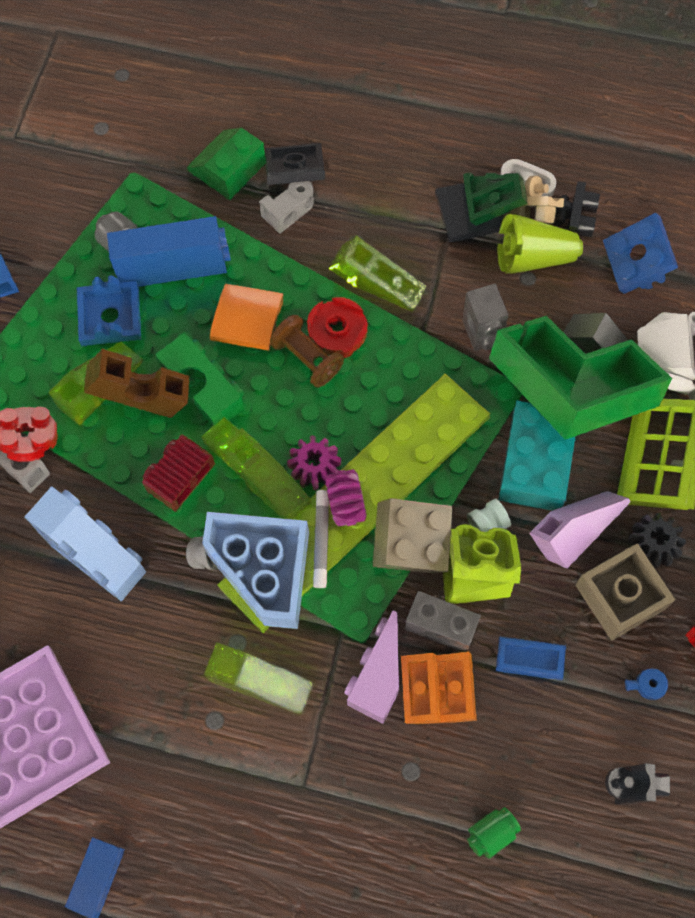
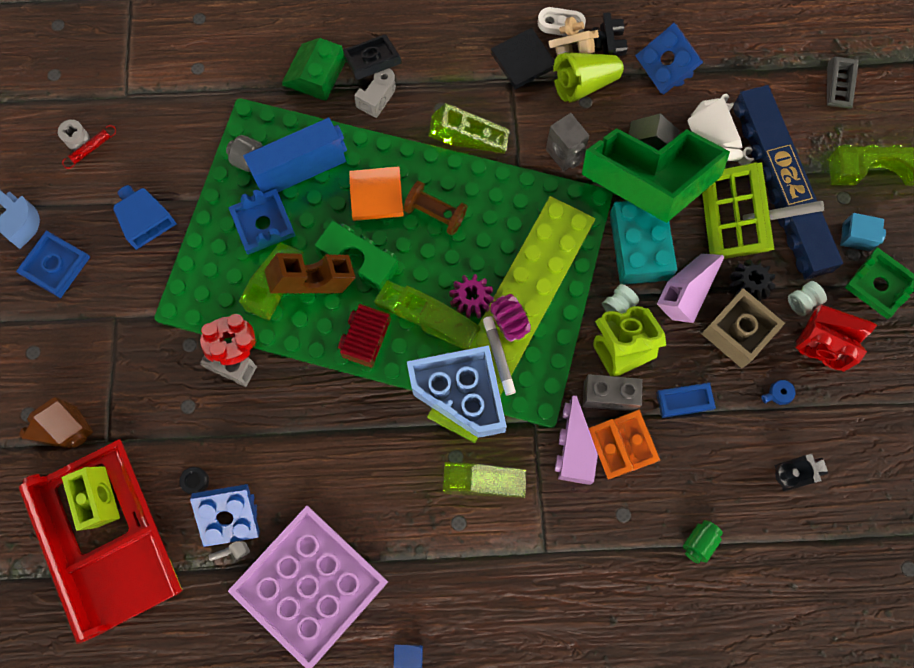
camera: 20 degrees left, 5 degrees up
(86, 542) = (311, 414): light blue brick -> none
(197, 556) = (404, 395): light grey wheel -> none
(338, 310) = (443, 171): red plate -> none
(412, 536) = (569, 332): dark tan brick -> none
(493, 195) = (541, 41): dark green wing -> none

